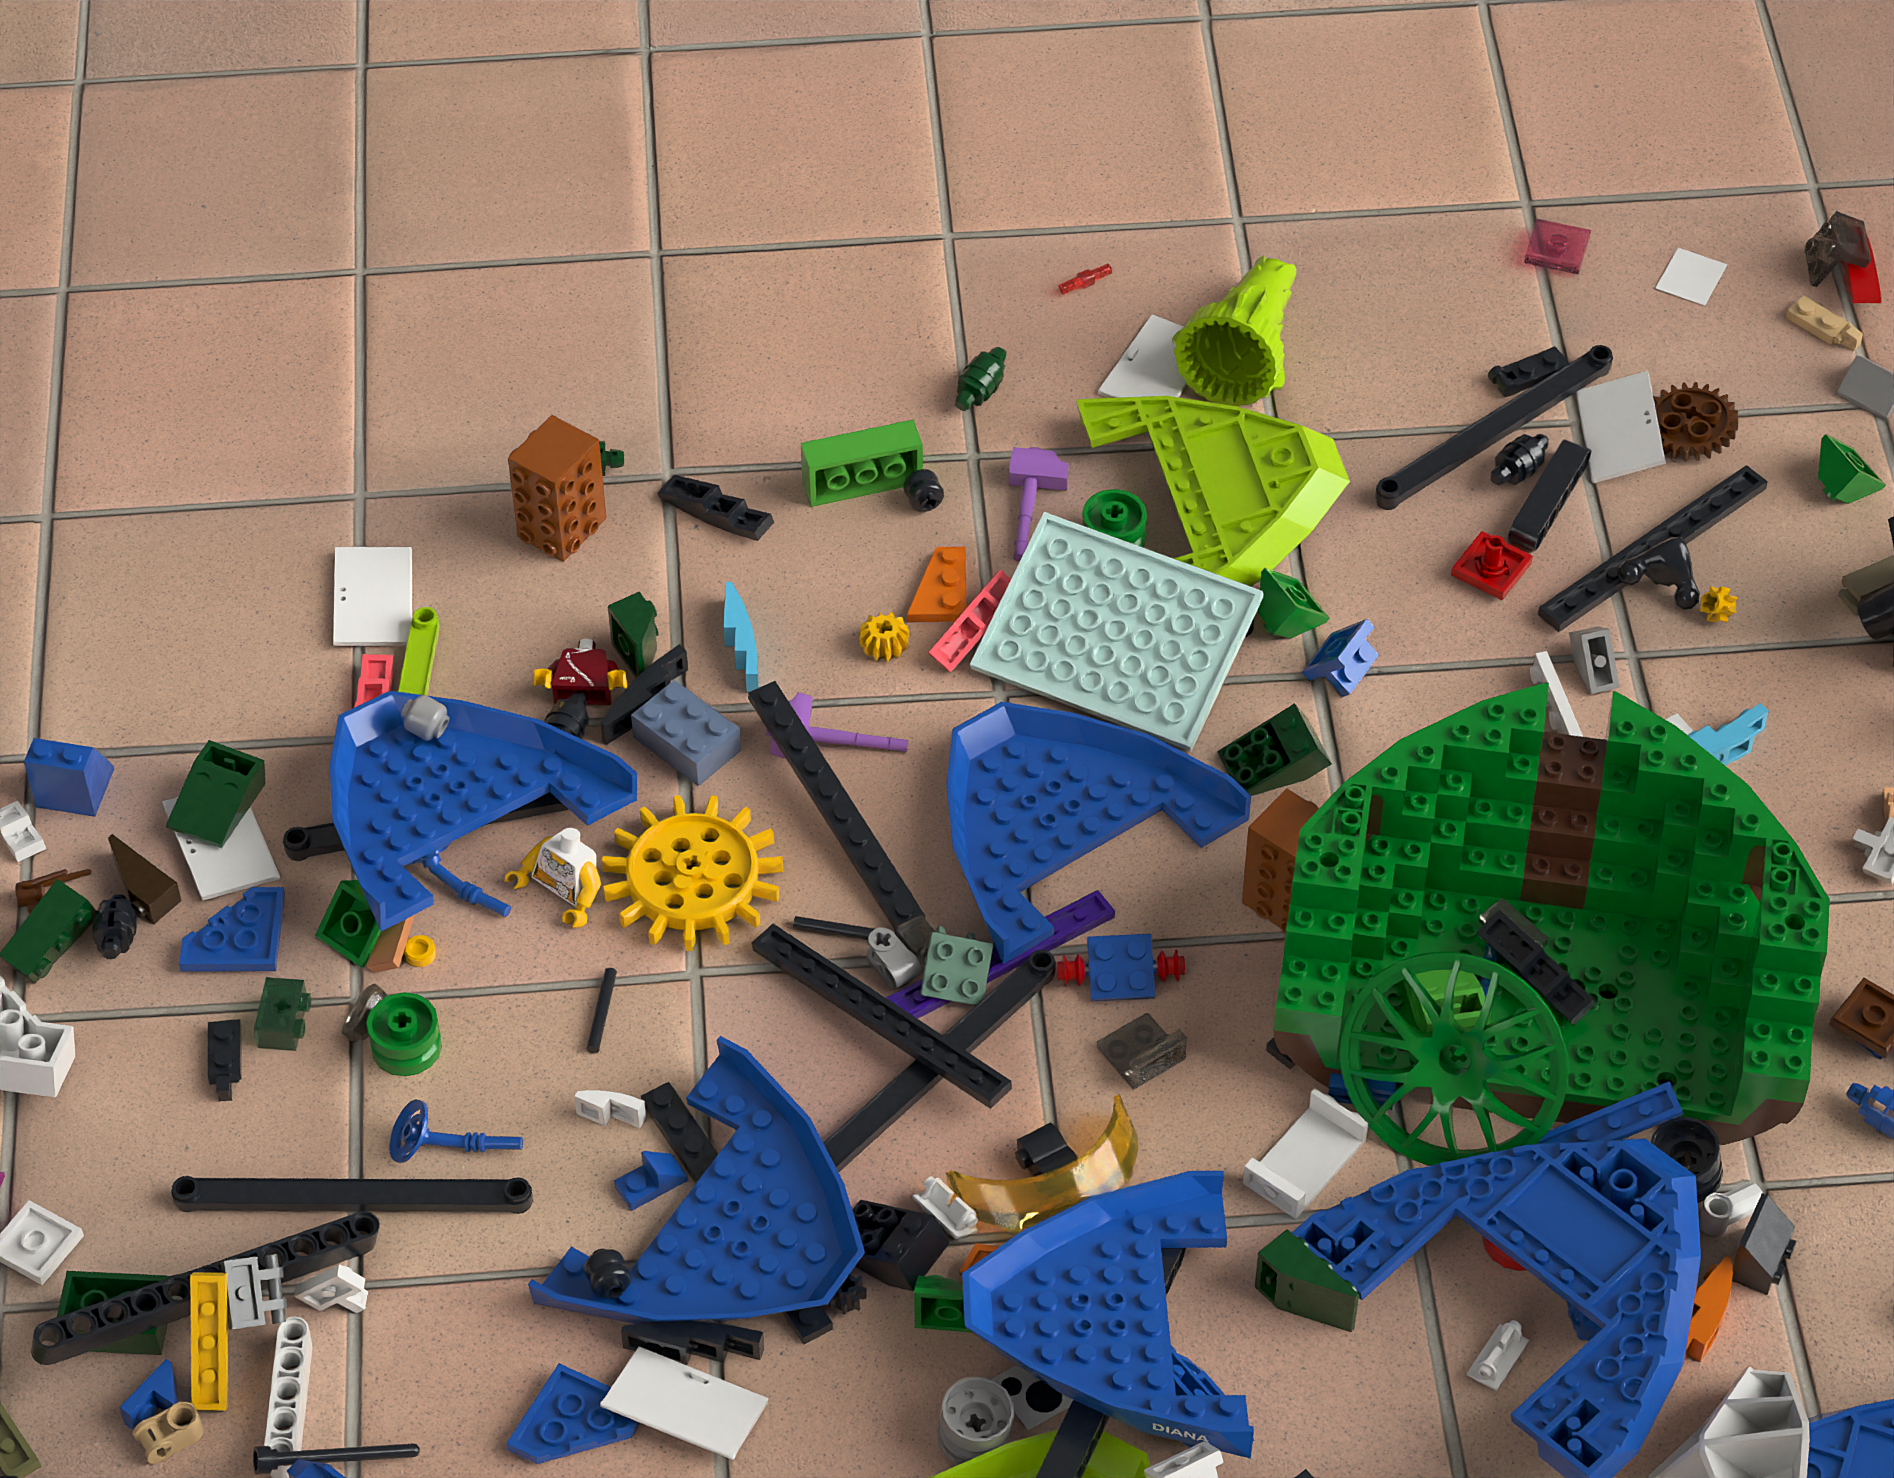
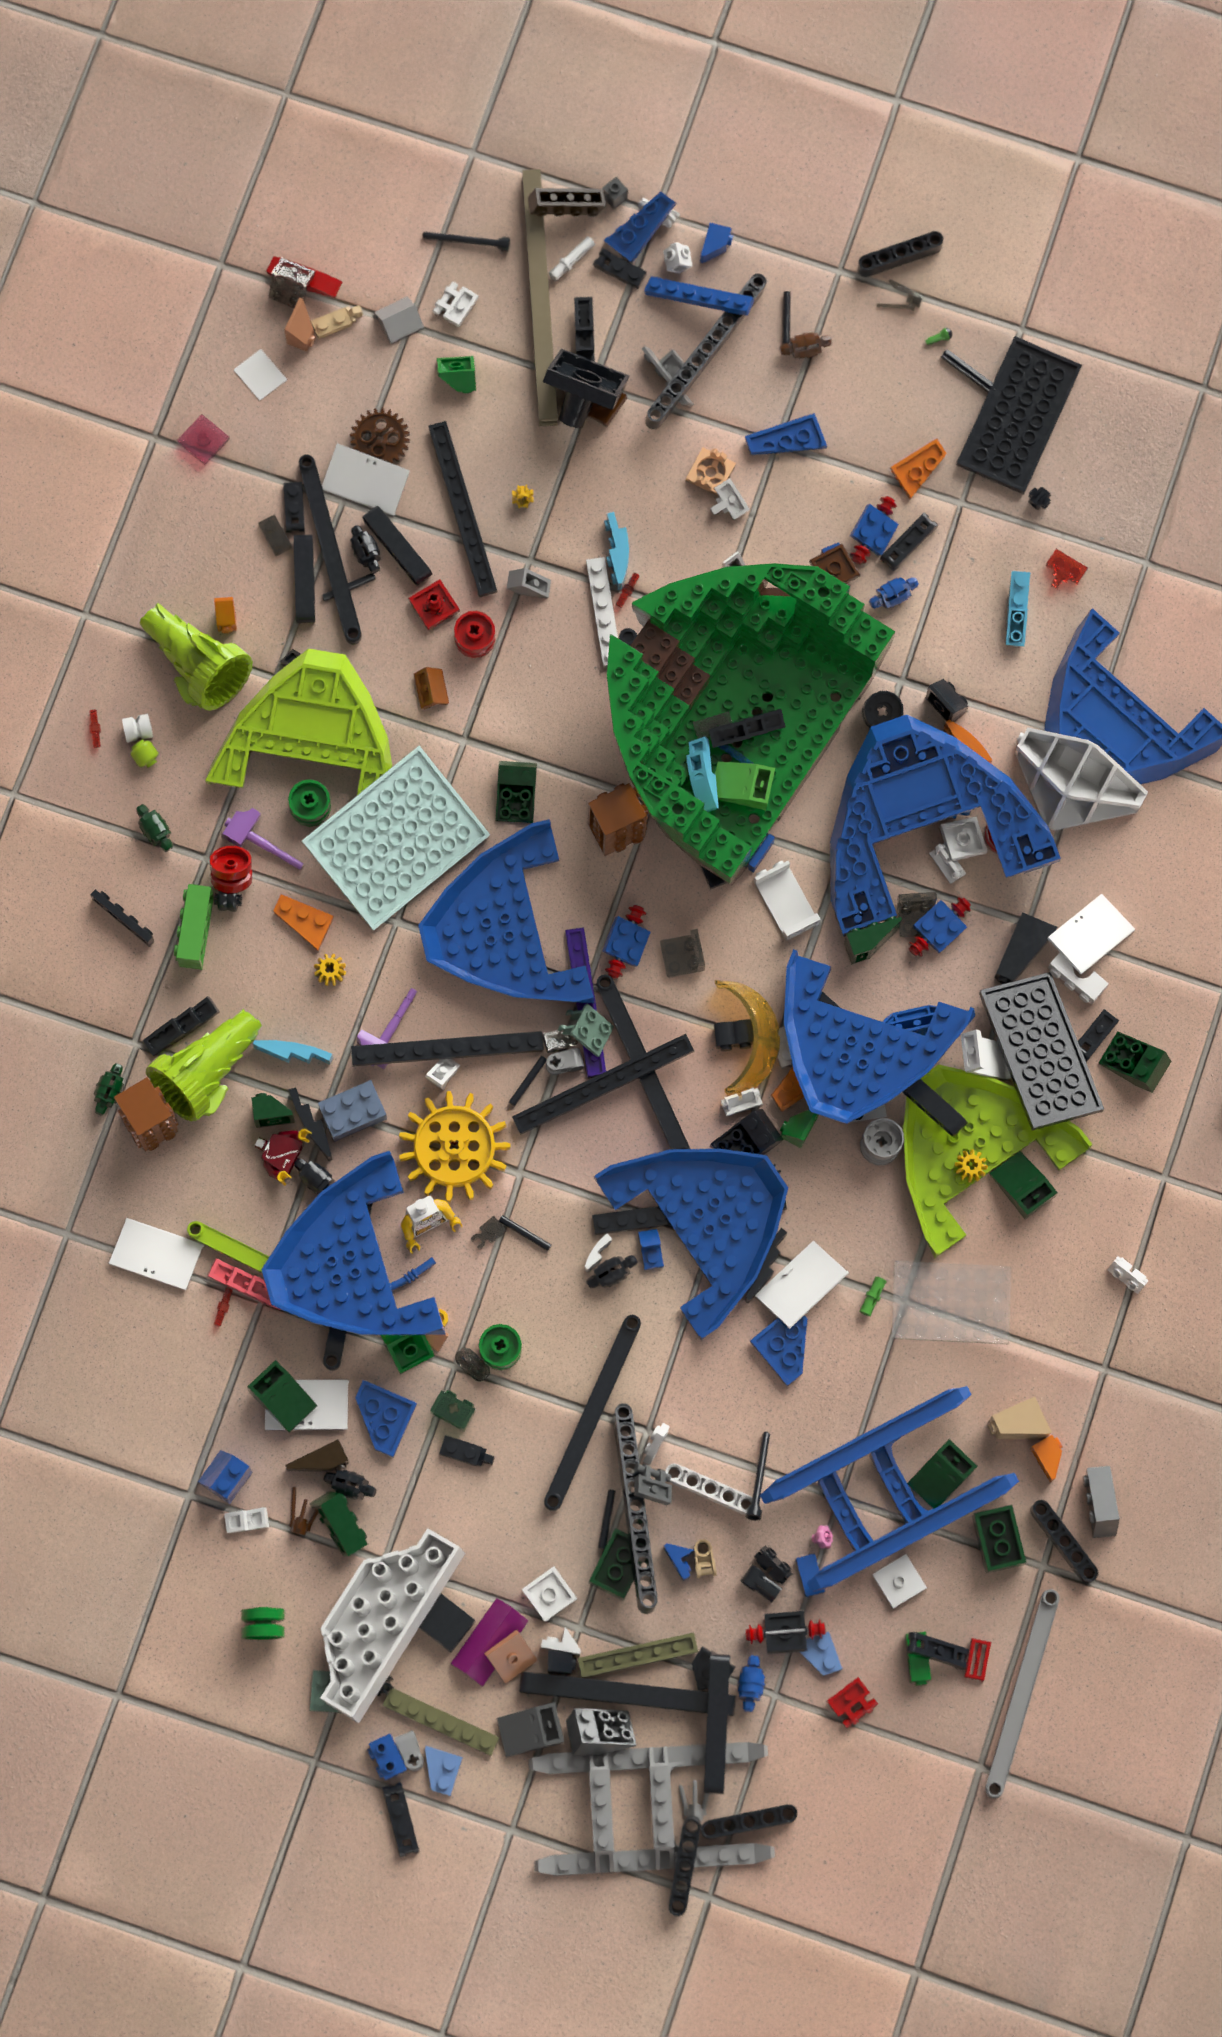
camera: 70 degrees left, 25 degrees up
(209, 1341) = (669, 1518): yellow plate -> none
(326, 693) = (223, 1307): none -> clear red bar
(419, 1134) = (571, 1357): blue dish -> none
(425, 717) = (294, 1255): light grey head -> none
(583, 967) = (490, 1231): none -> clear smoke plate
(587, 1134) = (609, 1268): none -> black piece
(607, 1273) = (715, 1294): black piece -> none
(645, 524) = (193, 1074): none -> lime cone
(795, 812) = (442, 1072): none -> white slope
(839, 385) = (117, 912): none -> black plate
(965, 469) = (231, 869): none -> red wheel
(970, 624) = (342, 914): coral slope -> none
(1080, 335) = (144, 753): none -> lime head
(1110, 314) = (137, 728): none -> white wheel
(1151, 367) = (194, 727): white container -> none
(1288, 605) = (412, 731): green slope -> none
(1327, 344) = (225, 614): none -> orange slope
(1344, 657) = (464, 721): blue bracket -> none
(1374, 602) = (431, 687): none -> dark orange panel
(1384, 1380) = (940, 926): none -> blue plate
(1388, 1341) = (912, 908): none -> clear smoke bracket
(1420, 930) = (701, 775): none -> medium azure slope
(1434, 413) = (304, 579): none -> black beam
(1441, 1068) = (791, 801): green wheel -> none
(1465, 474) = (352, 585): none -> black bar
(1475, 366) = (275, 535): none -> clear smoke plate
(1477, 620) = (465, 629): none -> red wheel
(1542, 1351) = (963, 839): none -> white plate
(1560, 711) = (547, 620): white plate -> none
(1621, 1118) = (848, 747): blue plate -> none
(1667, 565) = (486, 510): black head -> none
(1727, 1208) = (913, 700): white piece -> none
(1785, 277) = (299, 328): none -> nougat slope

